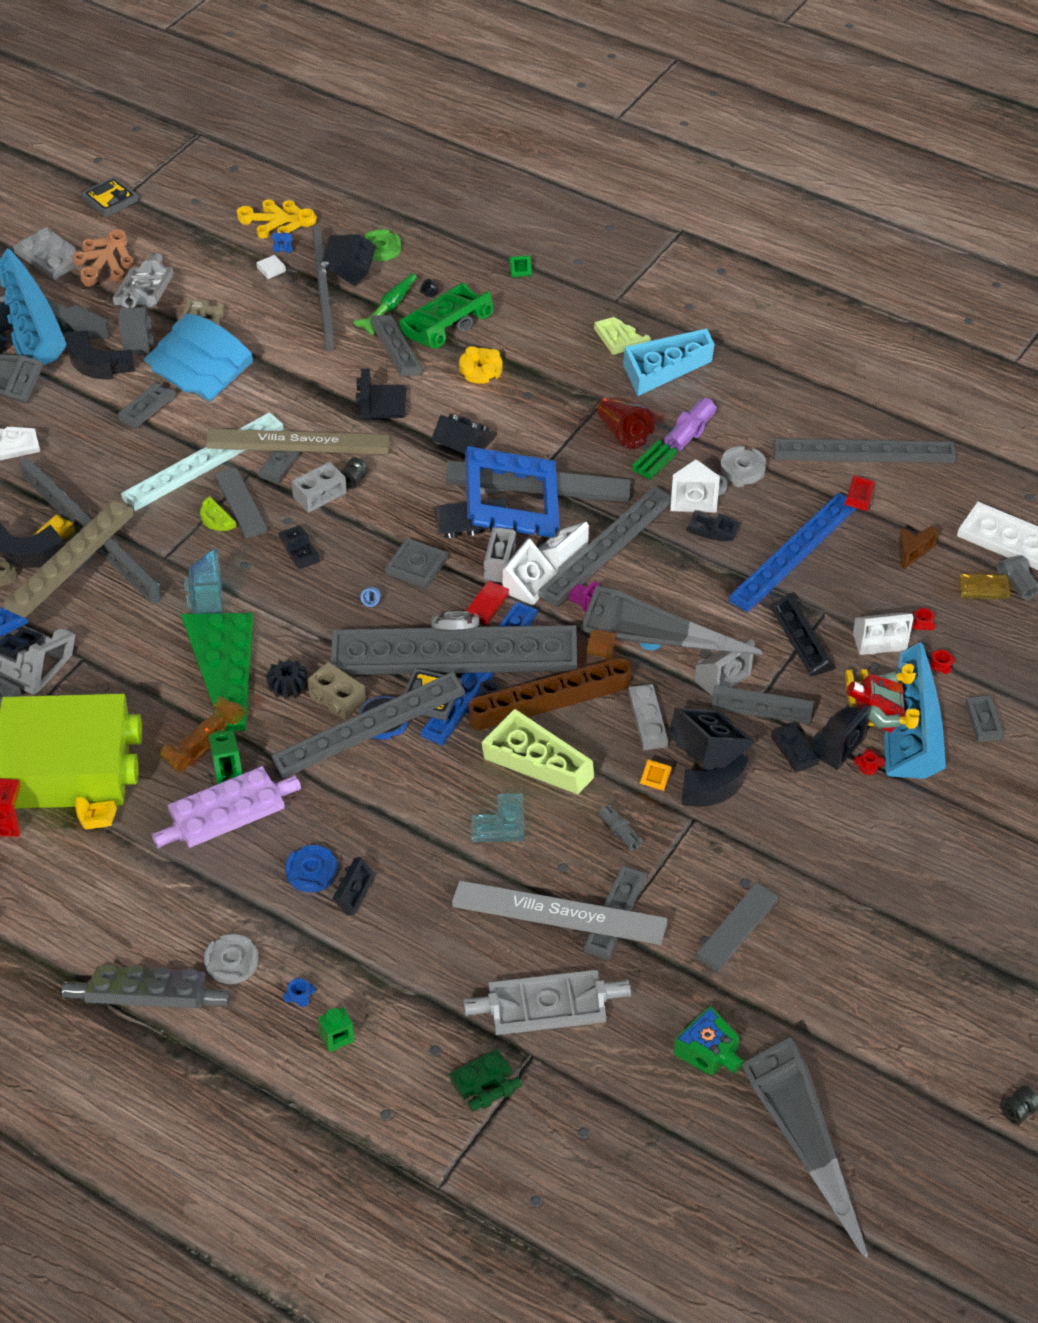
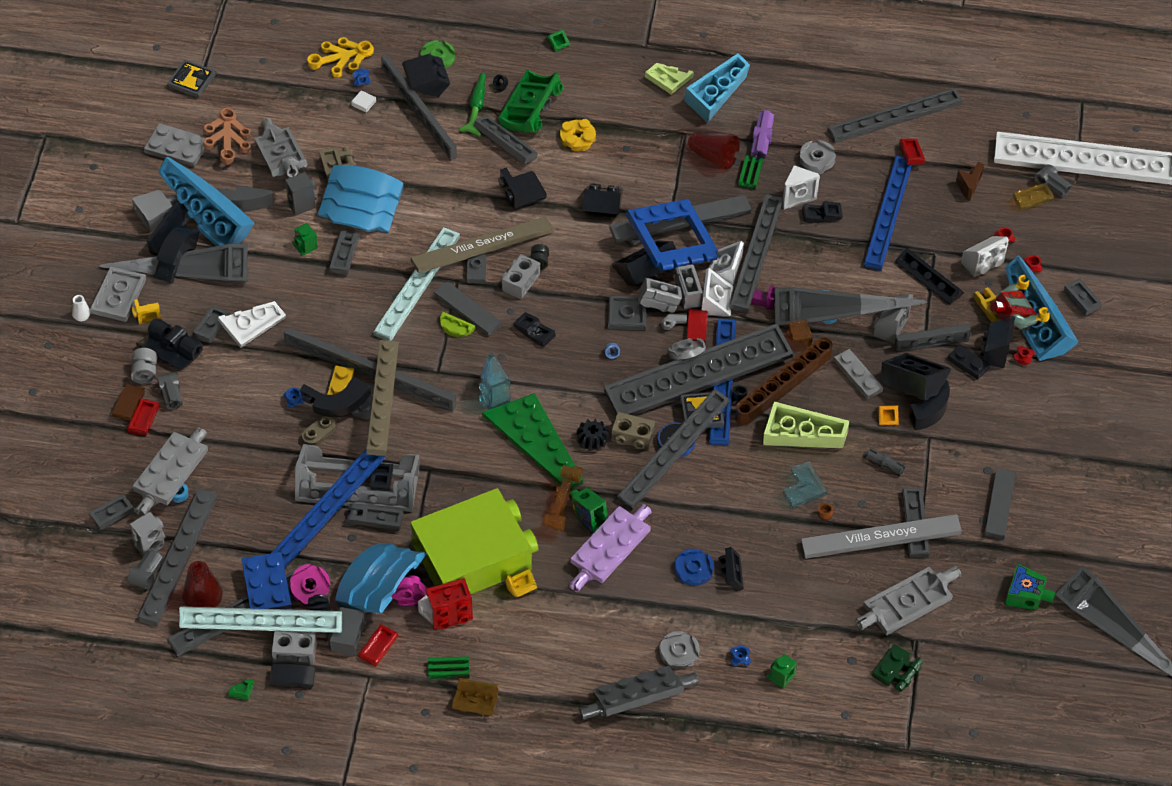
camera: 25 degrees left, 5 degrees up
(95, 362) = (276, 229): black arch -> none
(111, 379) = (305, 239): none -> green brick
(458, 552) = (659, 295): none -> light grey brick
(462, 586) = (673, 319): none -> light grey arm
(508, 859) = (825, 511): none -> dark orange hinge

